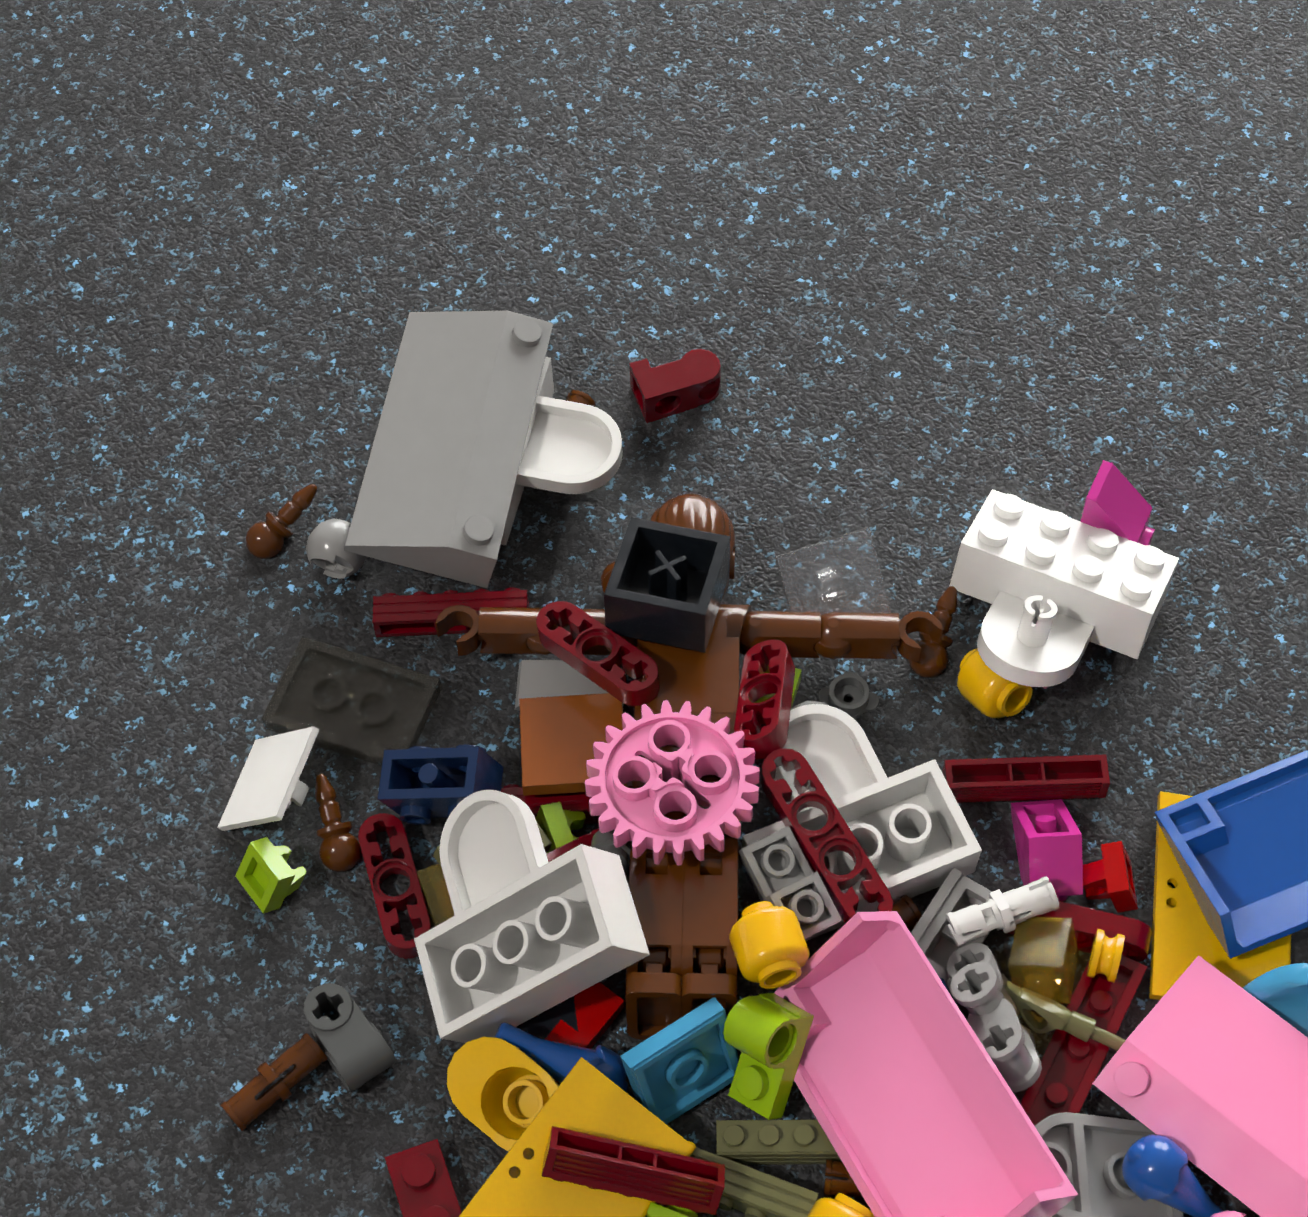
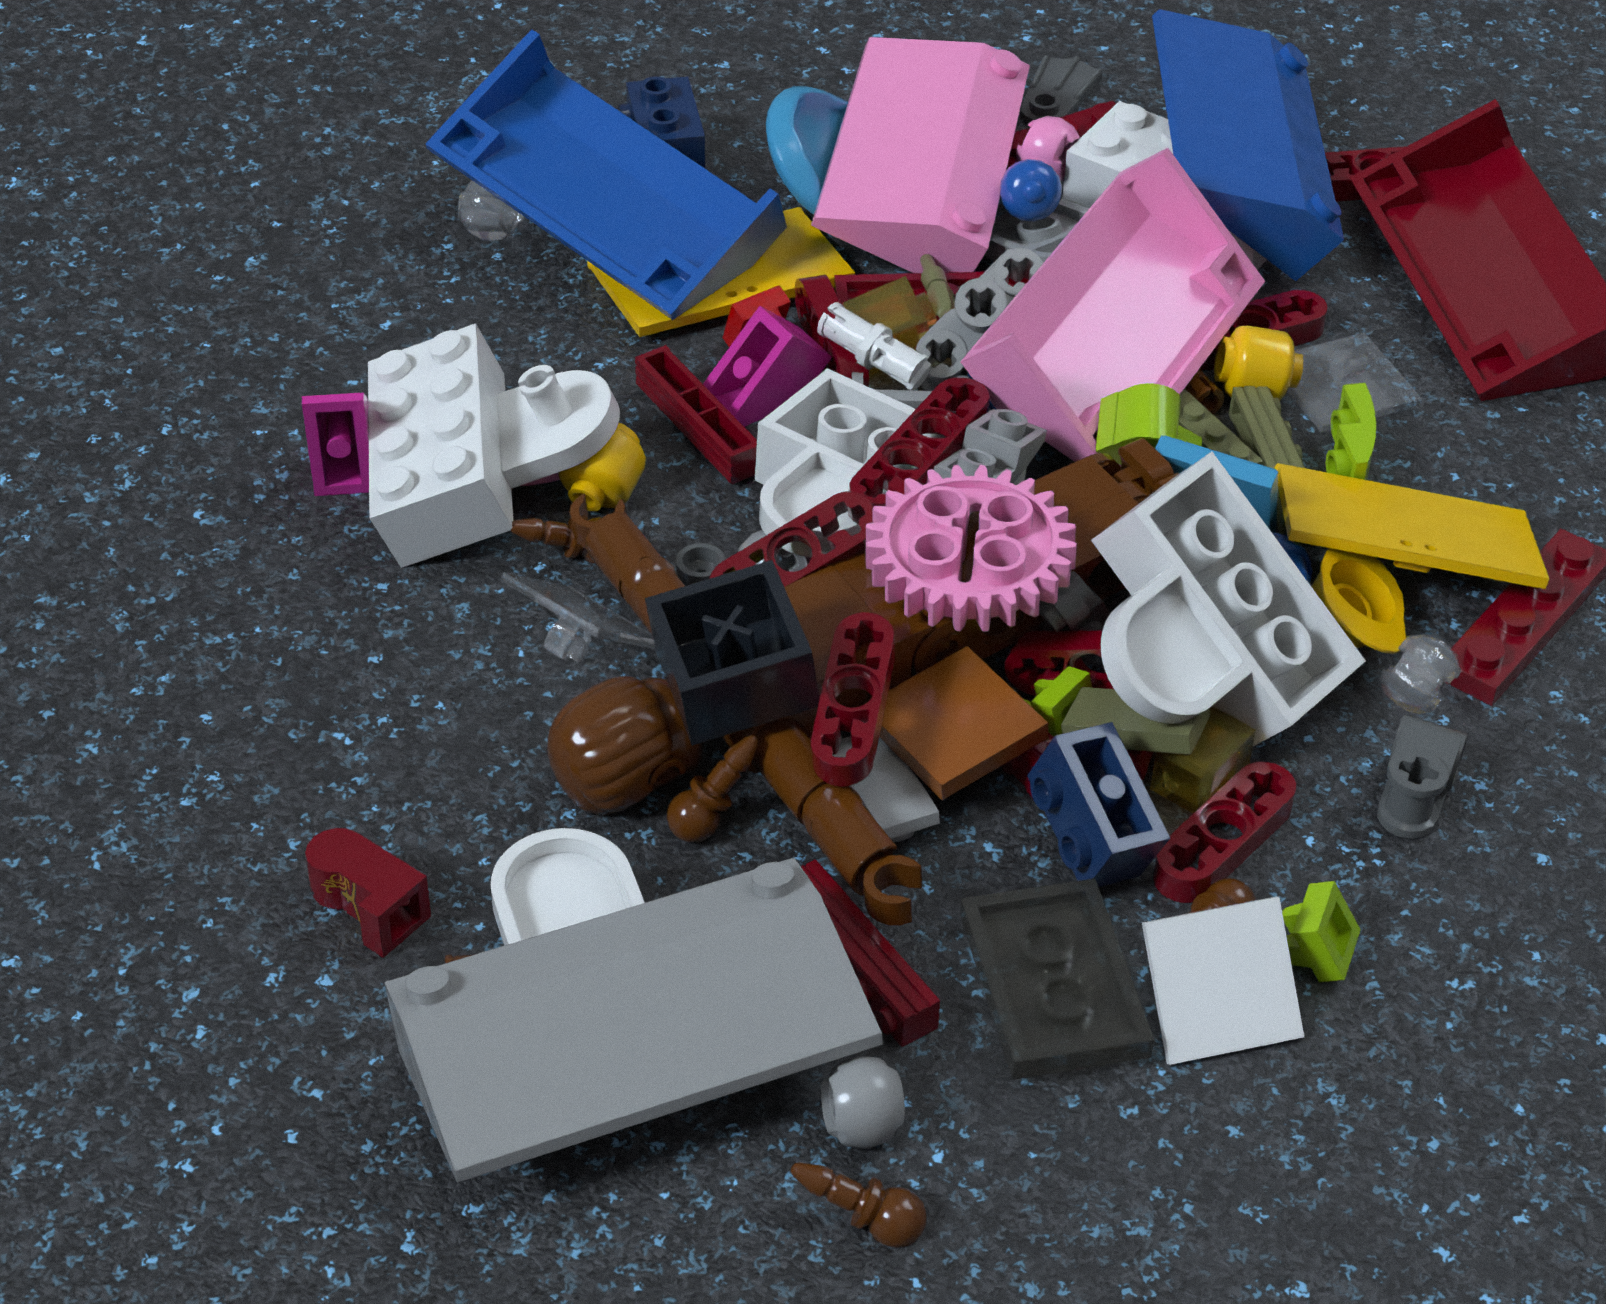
camera: 125 degrees left, 15 degrees down
(304, 1056) = (1517, 810): reddish brown pin -> none
(424, 1101) = (1420, 674): none -> clear piece
(633, 1170) = (1351, 468): dark red piece -> none
(769, 945) = (1073, 424): yellow head -> none
(1105, 955) = (851, 266): yellow bush -> none

